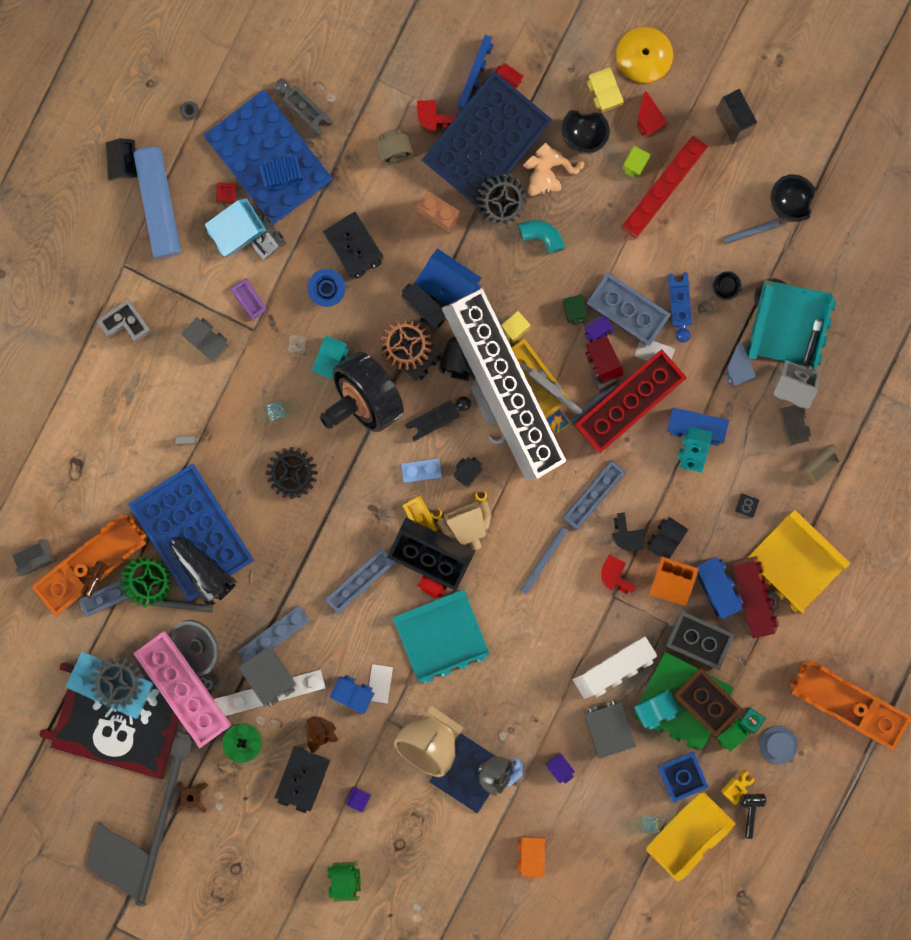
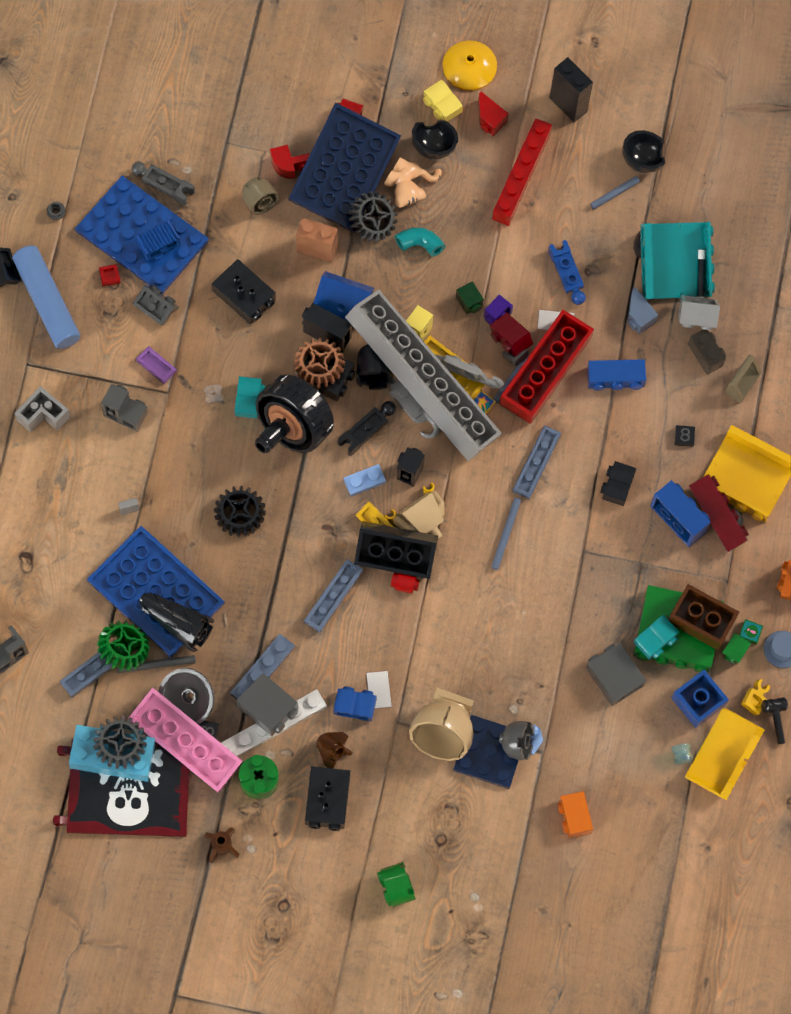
camera: 20 degrees left, 15 degrees down
(94, 579) = (71, 654): reddish brown axle -> none
(111, 545) = (64, 644): orange piece -> none
(122, 860) = (166, 926): dark grey flag -> none
(235, 227) = (126, 300): medium azure brick -> none
(275, 411) = (209, 458): clear light blue wheel -> none
(326, 287) = (228, 333): blue piece -> none
(358, 799) = (388, 804): dark purple brick -> none
(441, 636) = (426, 628): teal panel -> none
(479, 65) = (319, 107): blue plate -> none
(560, 768) = (579, 723): dark purple brick -> none
(610, 575) = (575, 531): red brick -> none
(614, 668) = (603, 614): white wedge -> none
(627, 539) = (579, 493): black brick -> none
(628, 309) = (520, 286): sand blue plate -> none
(635, 162) = (489, 156): lime brick -> none
(673, 581) = (636, 516): orange brick -> none
(695, 449) = (620, 393): teal brick -> none
(699, 640) = (677, 566): dark grey brick -> none
(727, 285) = (606, 243): black hair -> none

